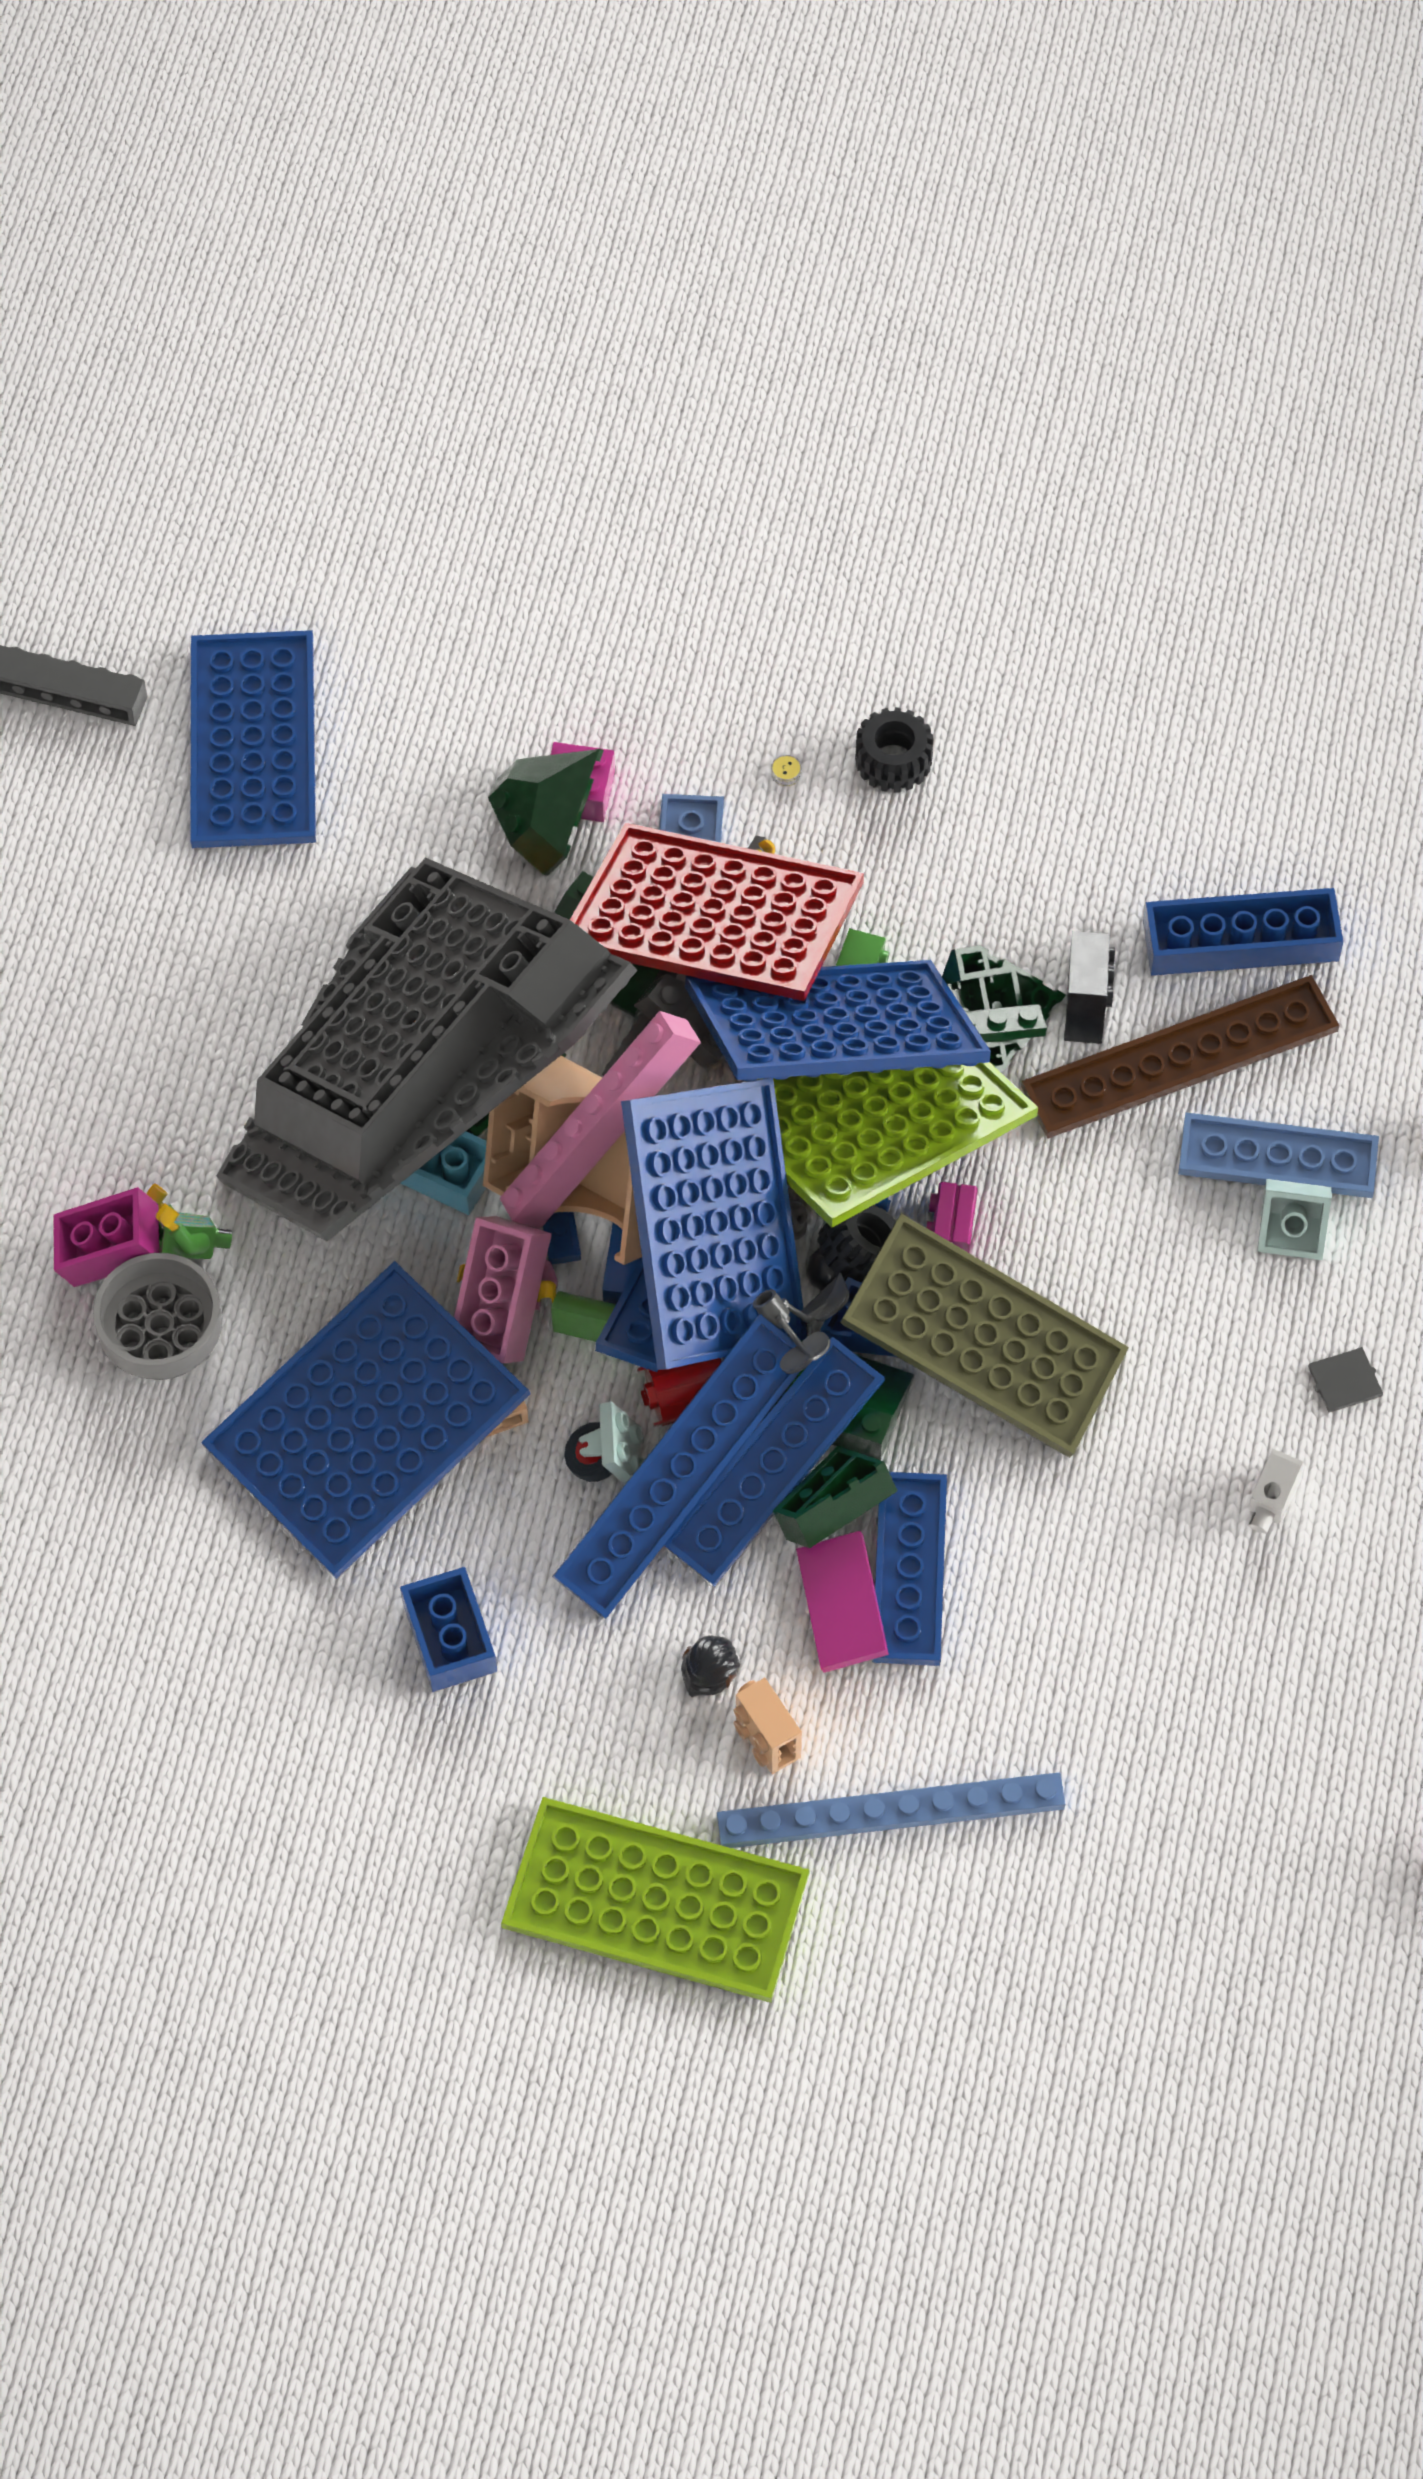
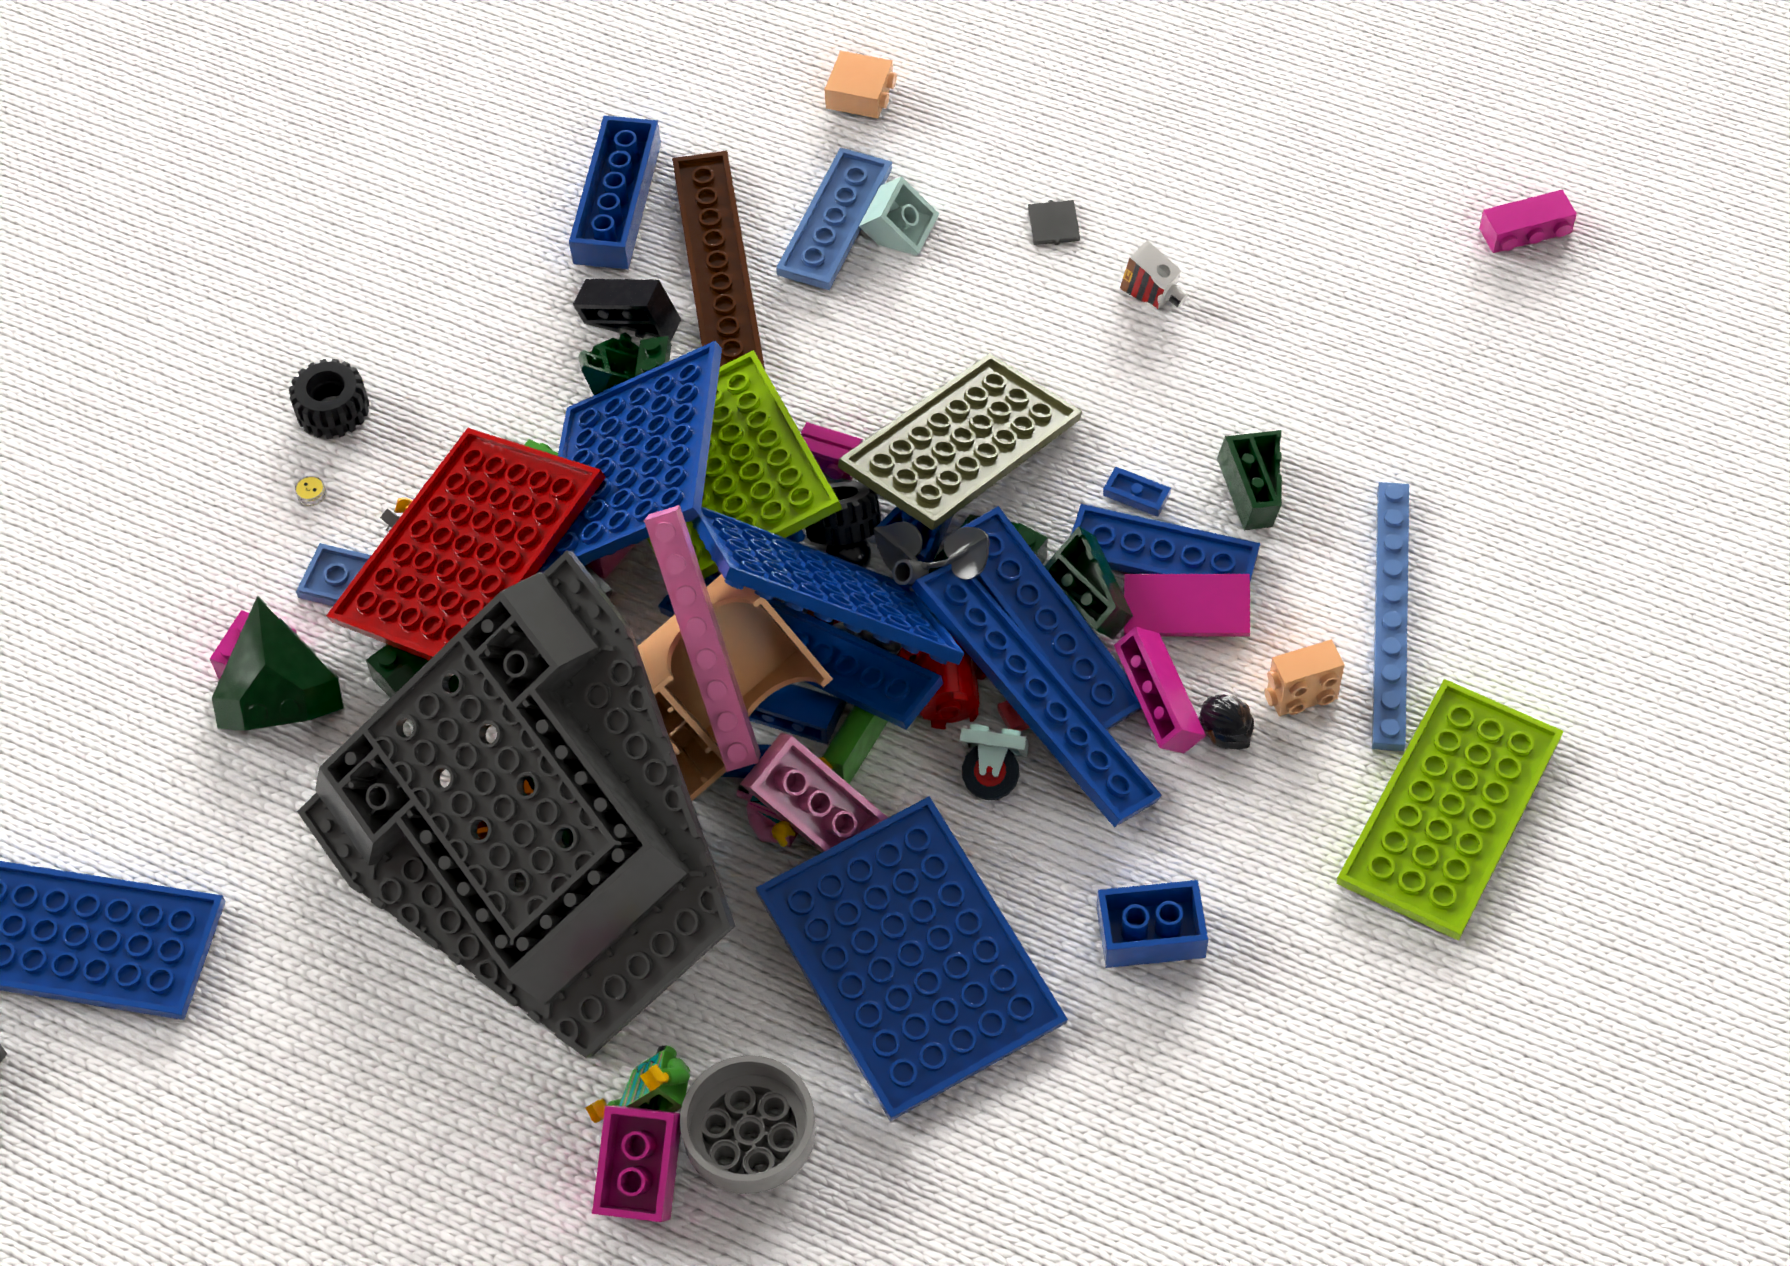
camera: 75 degrees left, 5 degrees down
(725, 1590) = (1159, 690): none -> dark pink brick
(982, 1529) = (1136, 491): none -> blue plate
(1025, 1639) = (1253, 476): none -> dark green wedge

